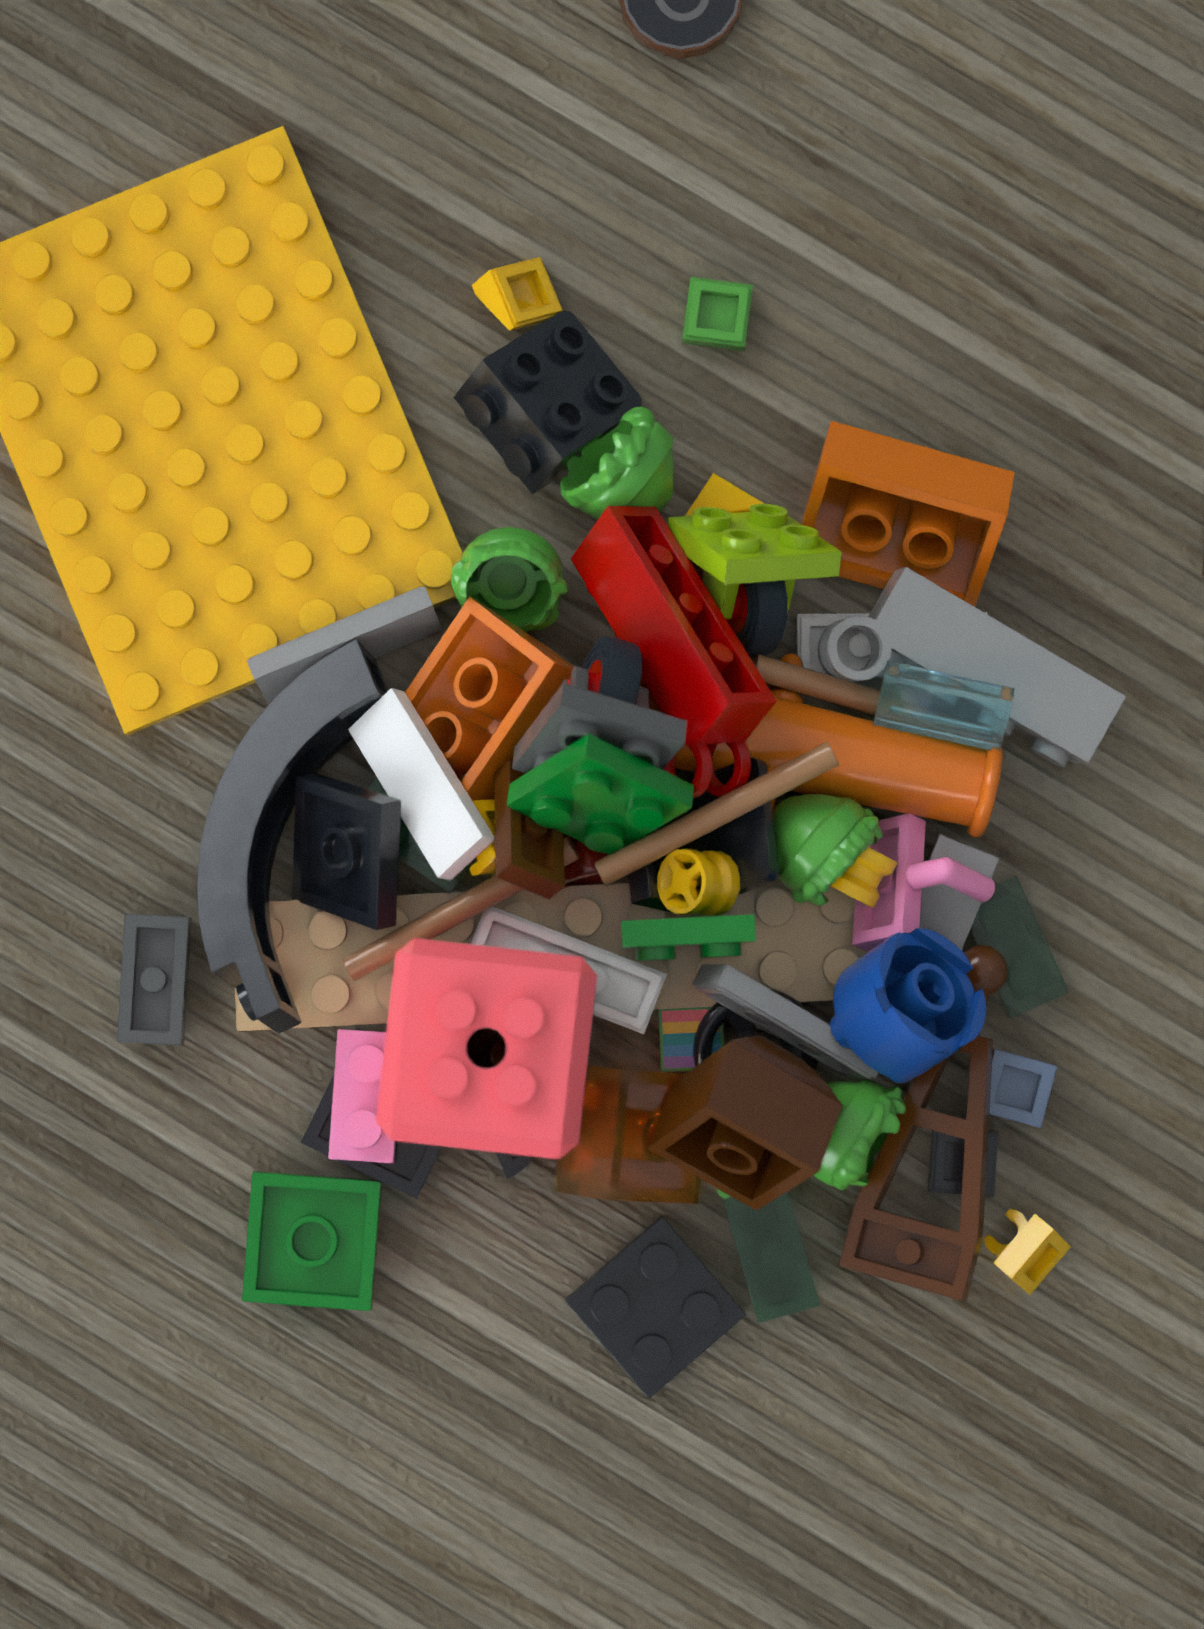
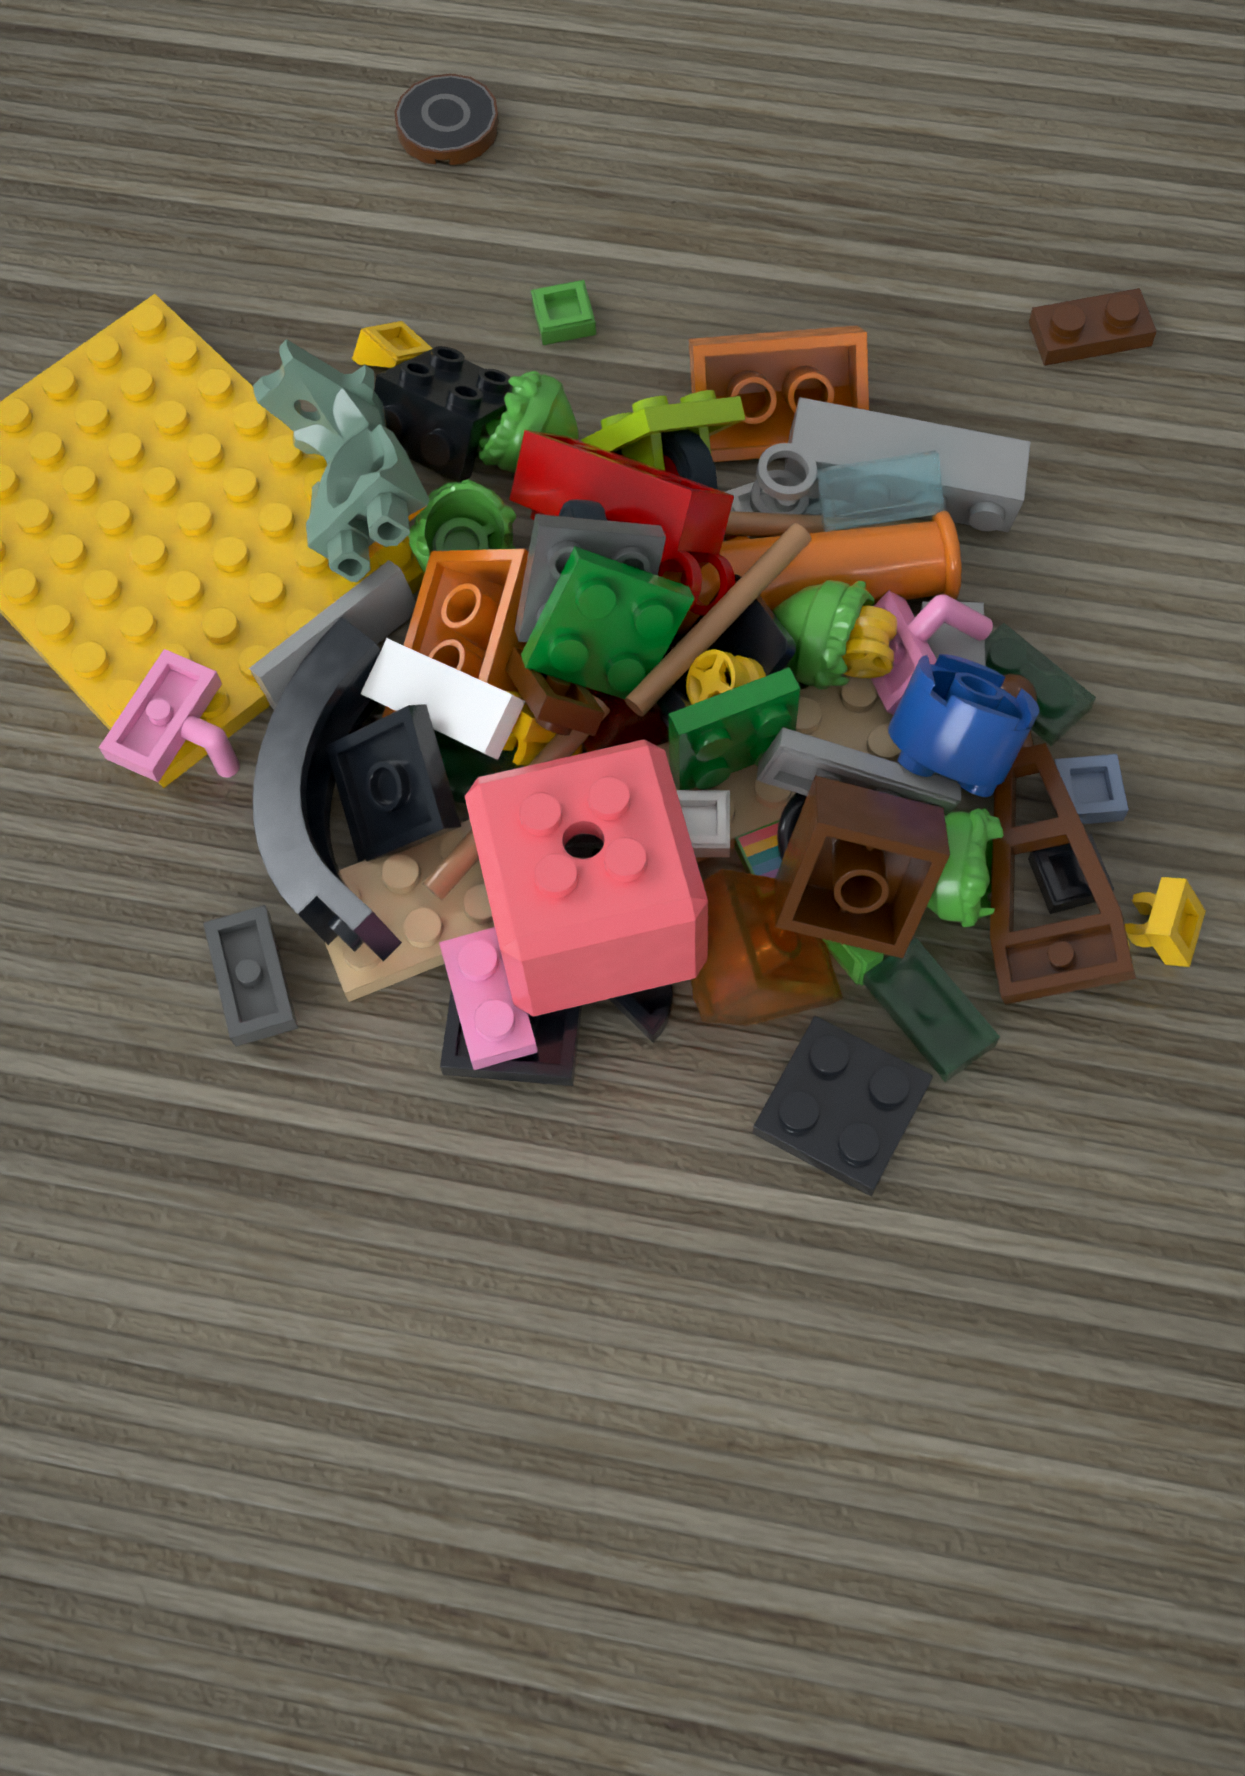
camera: 15 degrees left, 20 degrees down
(148, 687) = (166, 714): none -> bright pink plate
(312, 1240) = (483, 1159): green plate -> none
(407, 512) = (368, 480): none -> sand green hips

